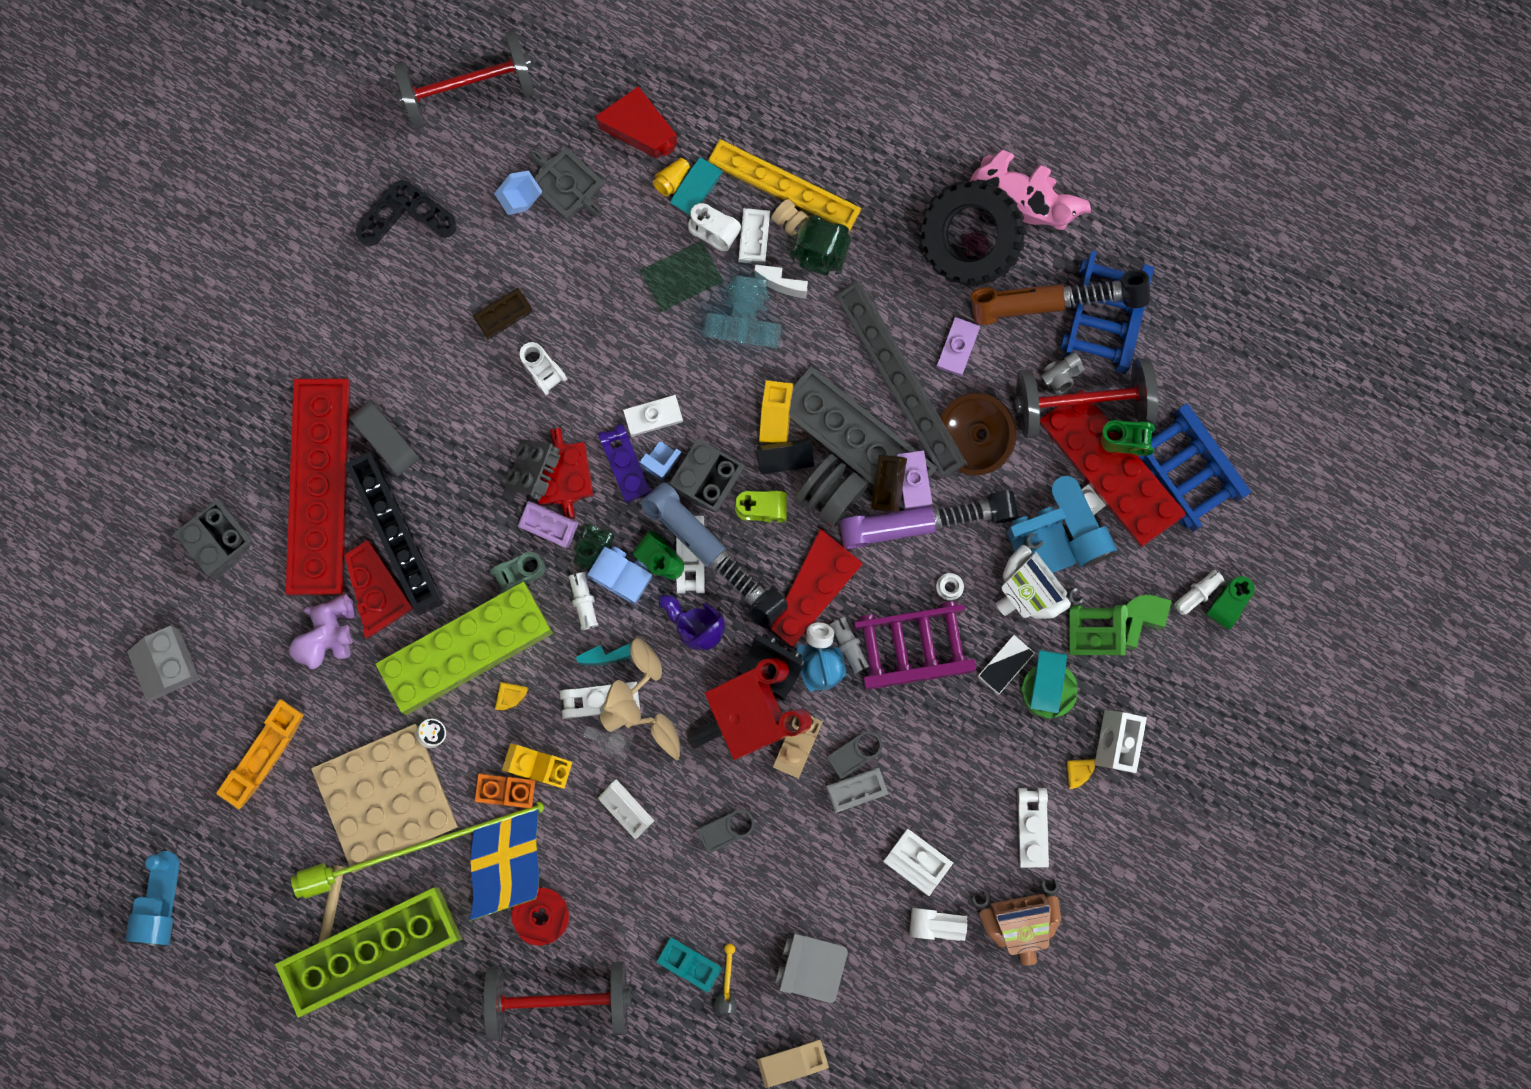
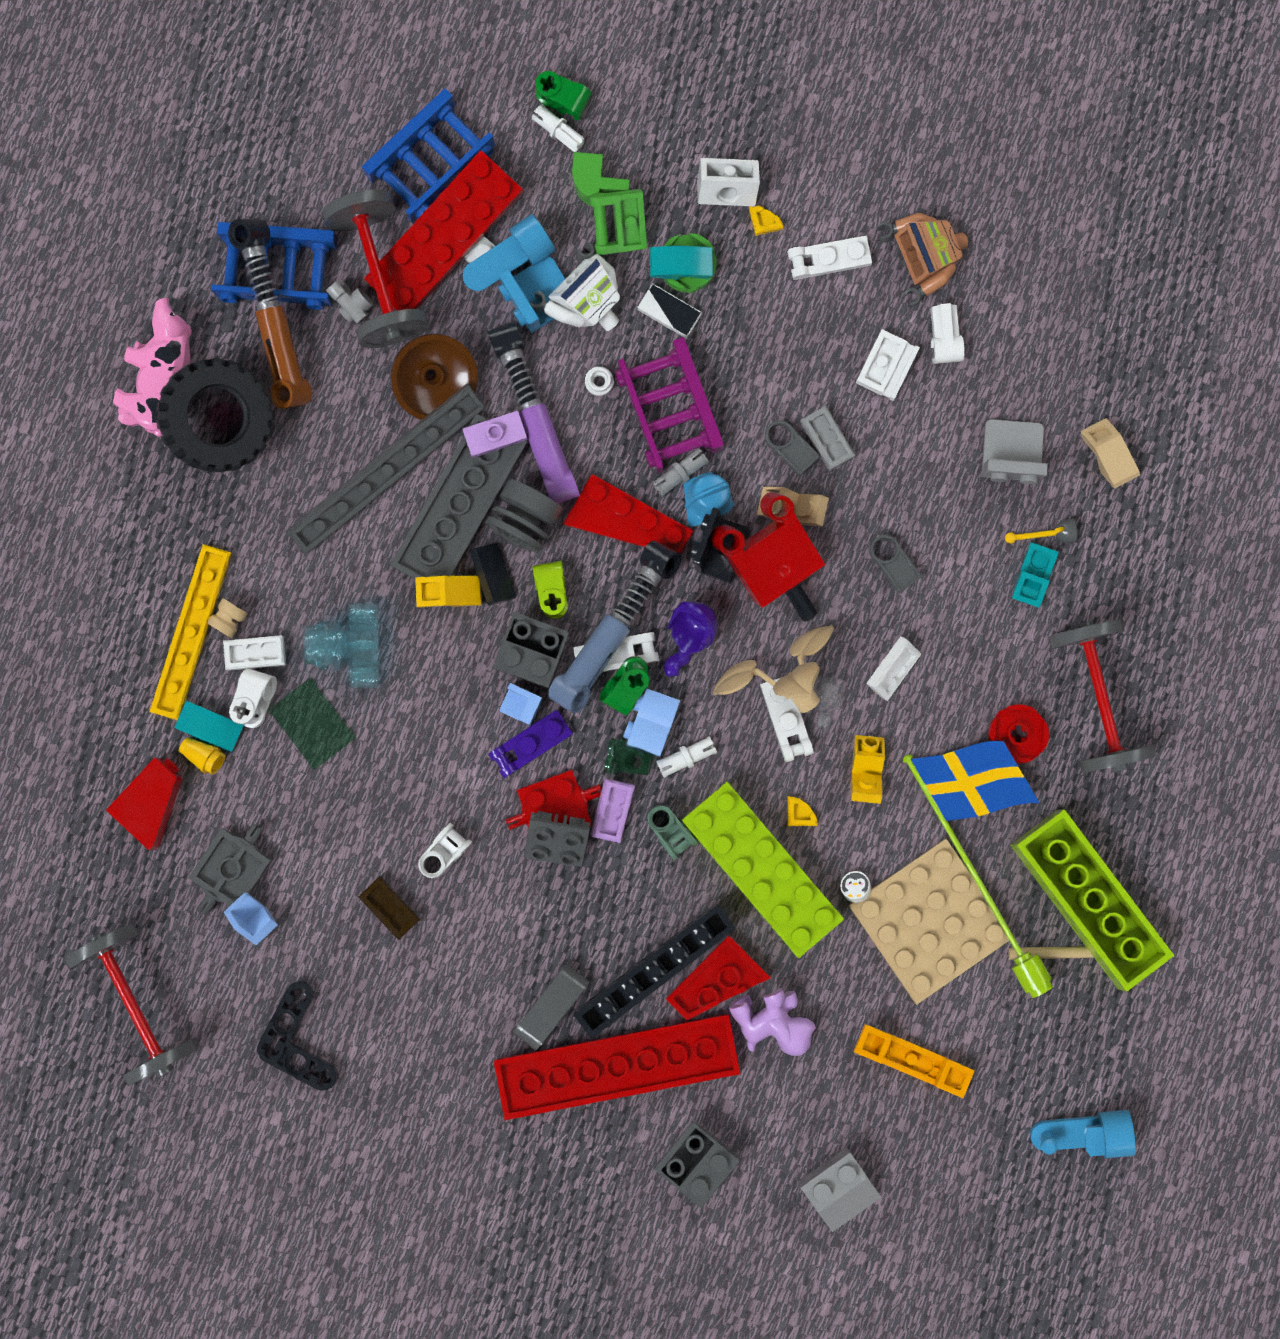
camera: 100 degrees left, 5 degrees up
(504, 791) = (899, 798): orange slope -> none
(597, 656) = (743, 728): teal slope -> none
(653, 415) = (473, 723): white plate -> none
(775, 281) = (299, 620): white slope -> none
(819, 635) = (676, 504): white tile -> none
(821, 246) = (255, 576): clear green brick -> none
(888, 483) = (504, 458): dark brown plate -> none
(958, 346) = (339, 415): lavender plate -> none
(1130, 437) = (411, 213): green piece -> none

